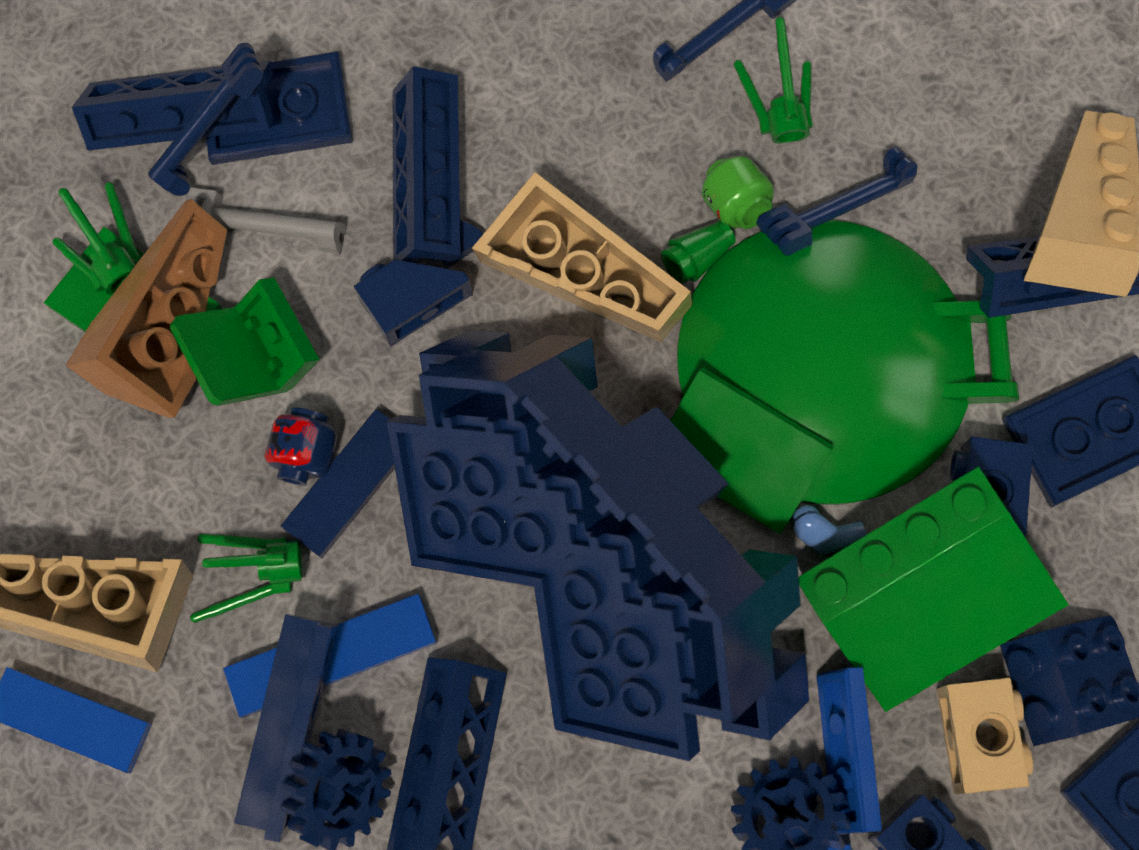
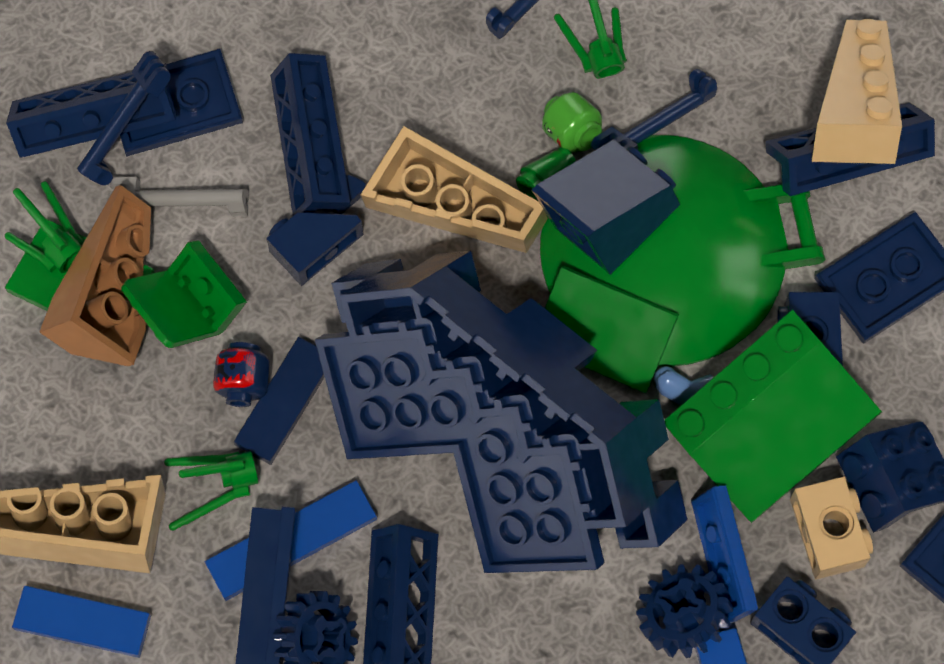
camera: 10 degrees left, 5 degrees down
(767, 298) = (608, 203): none -> dark blue slope

